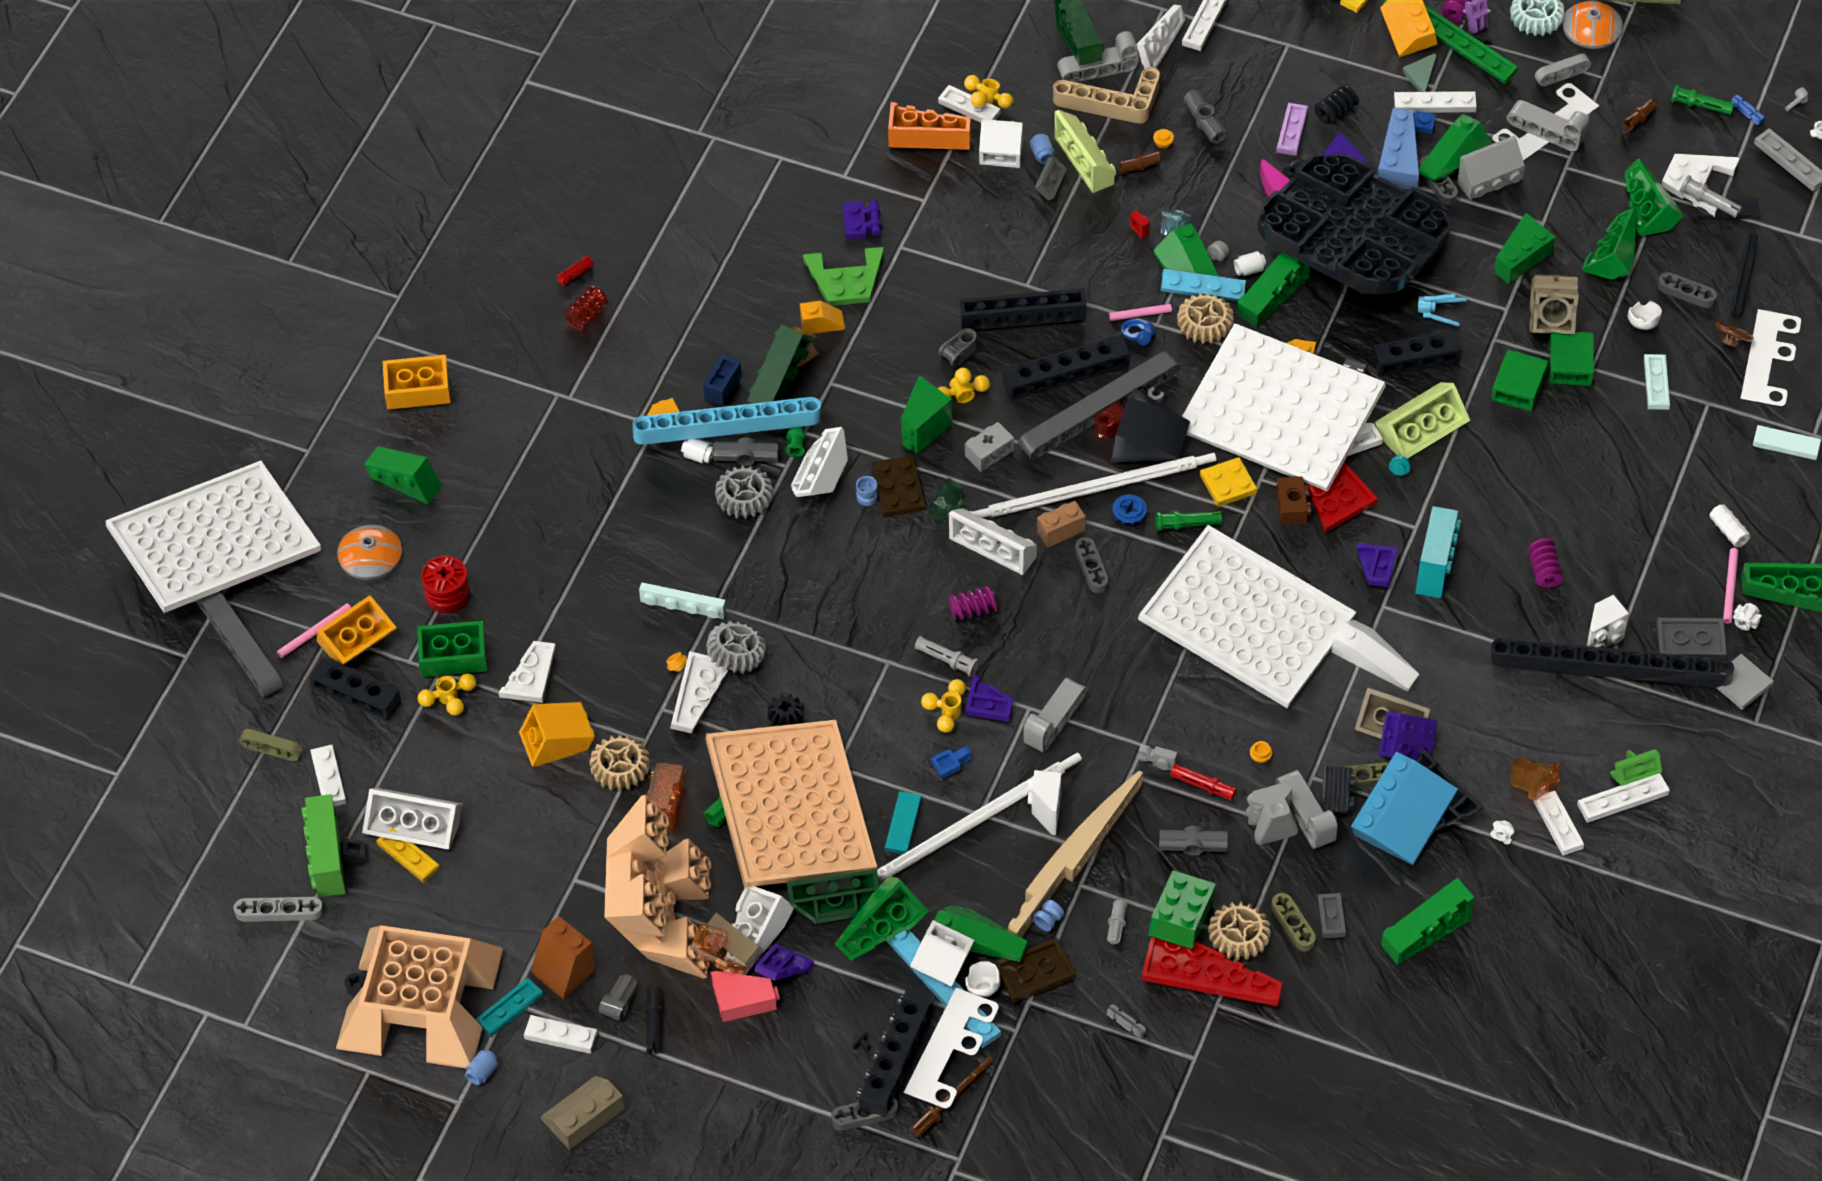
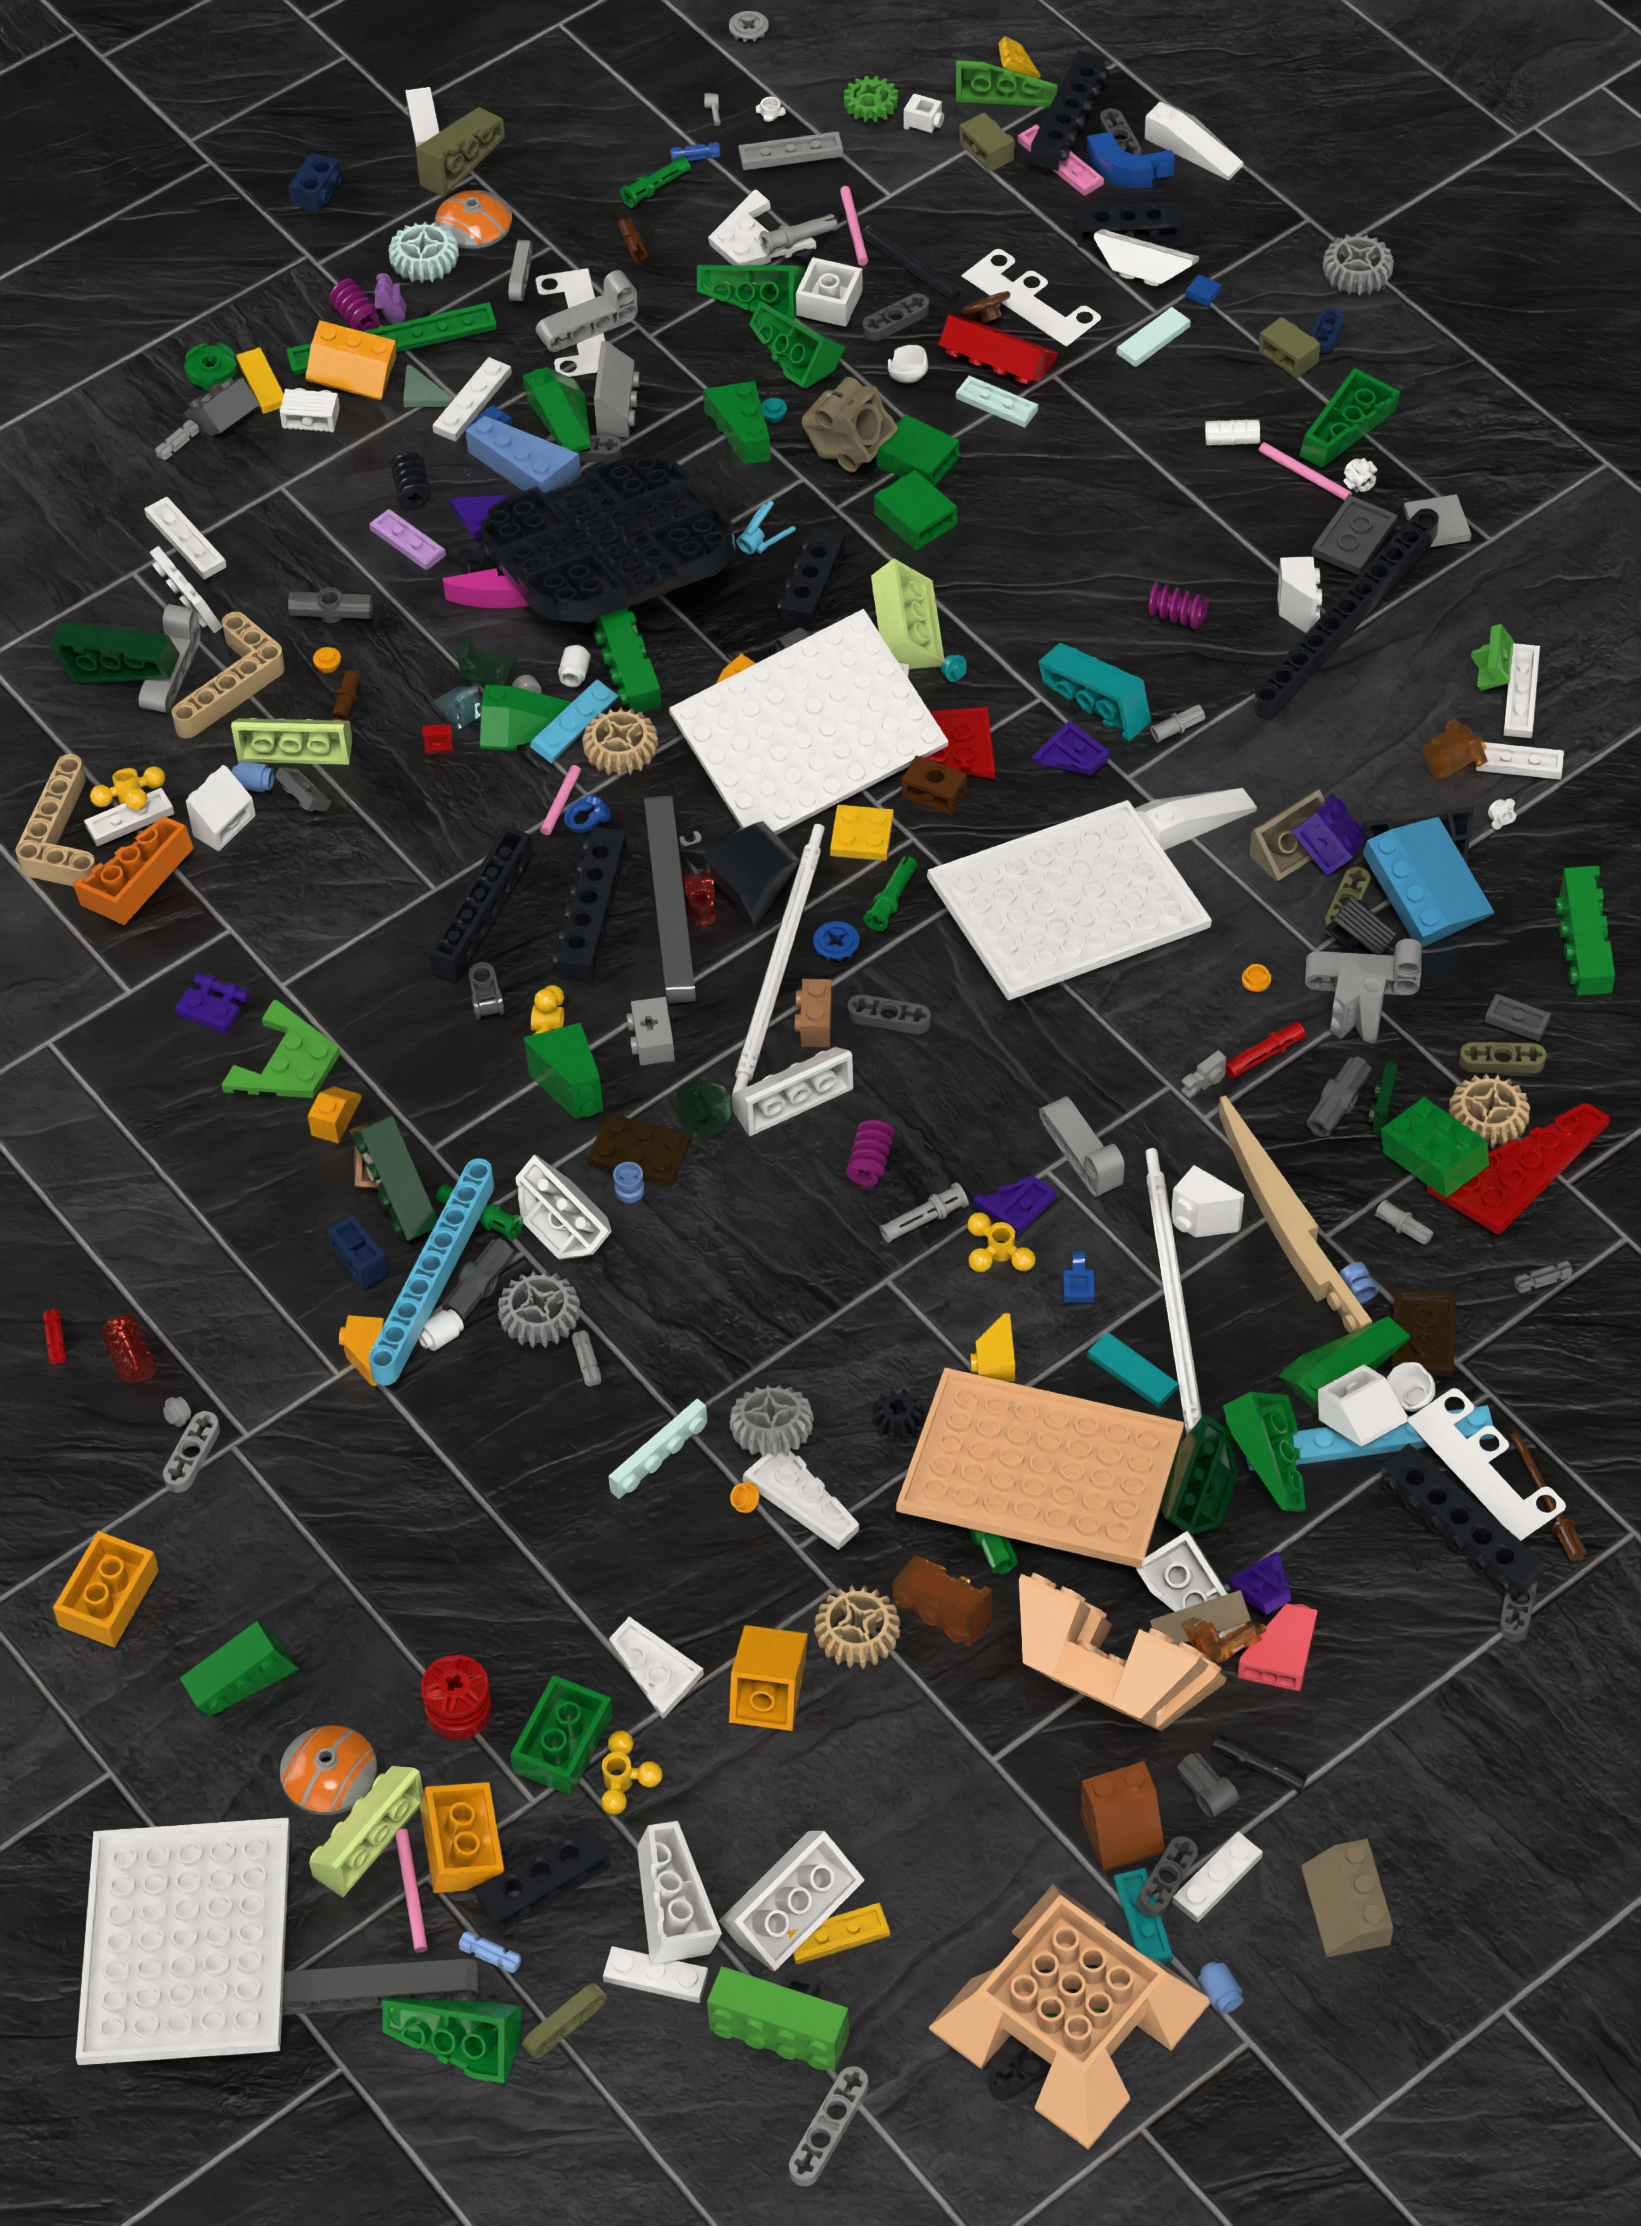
camera: 60 degrees left, 0 degrees up
(236, 699) = (468, 2034): none -> green wedge
(295, 688) = (490, 1952): none -> light blue axle
(333, 587) = (367, 1829): none -> yellowish green slope
(370, 759) = (674, 1899): none -> white wedge
(523, 372) = (191, 1464): none -> light grey beam
(525, 996) = (1156, 1883): none -> dark grey beam
(559, 353) = (177, 1411): none -> light grey plate
(727, 534) = (586, 1358): none -> light grey axle
(866, 741) = (995, 1352): none -> yellow slope
(935, 69) = (38, 847): none -> tan beam
(1206, 864) = (1384, 1093): none -> dark green plate
(1213, 220) = (483, 666): none -> clear green piece
(1356, 23) = (309, 410): none -> white brick
(1445, 611) = (1177, 723): none -> light grey axle
(1550, 263) = (774, 410): none -> teal plate
(1672, 240) = (829, 292): none -> white brick
(1701, 358) = (997, 349): none -> red slope
(1753, 228) = (854, 225): none -> bright pink bar

